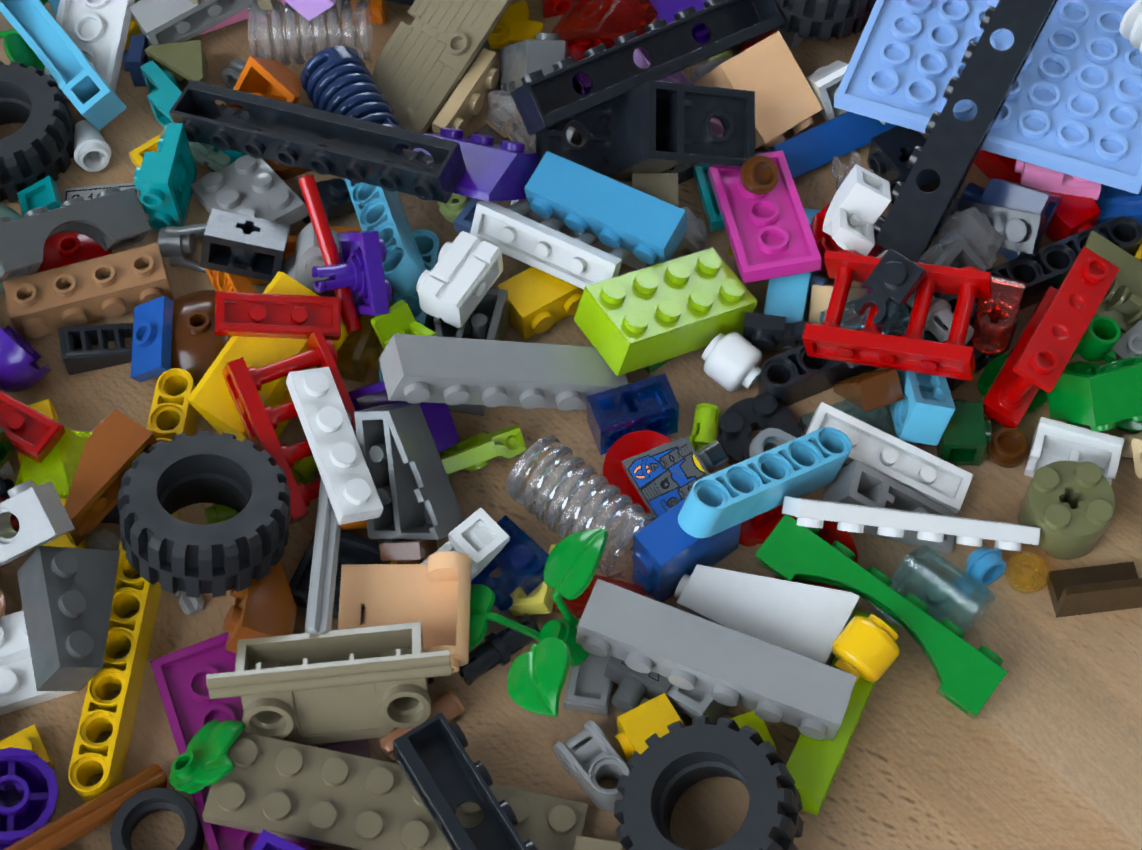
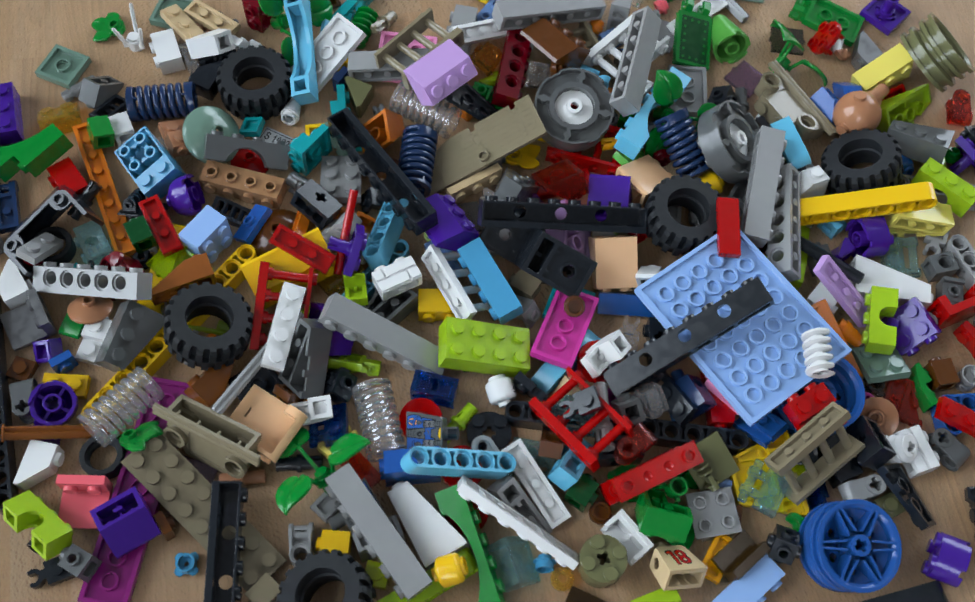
camera: 25 degrees right, 5 degrees up
(87, 384) = (207, 234): none -> light blue brick
(129, 712) = (94, 417): none -> clear piece
(480, 486) = (339, 384): none -> black brick

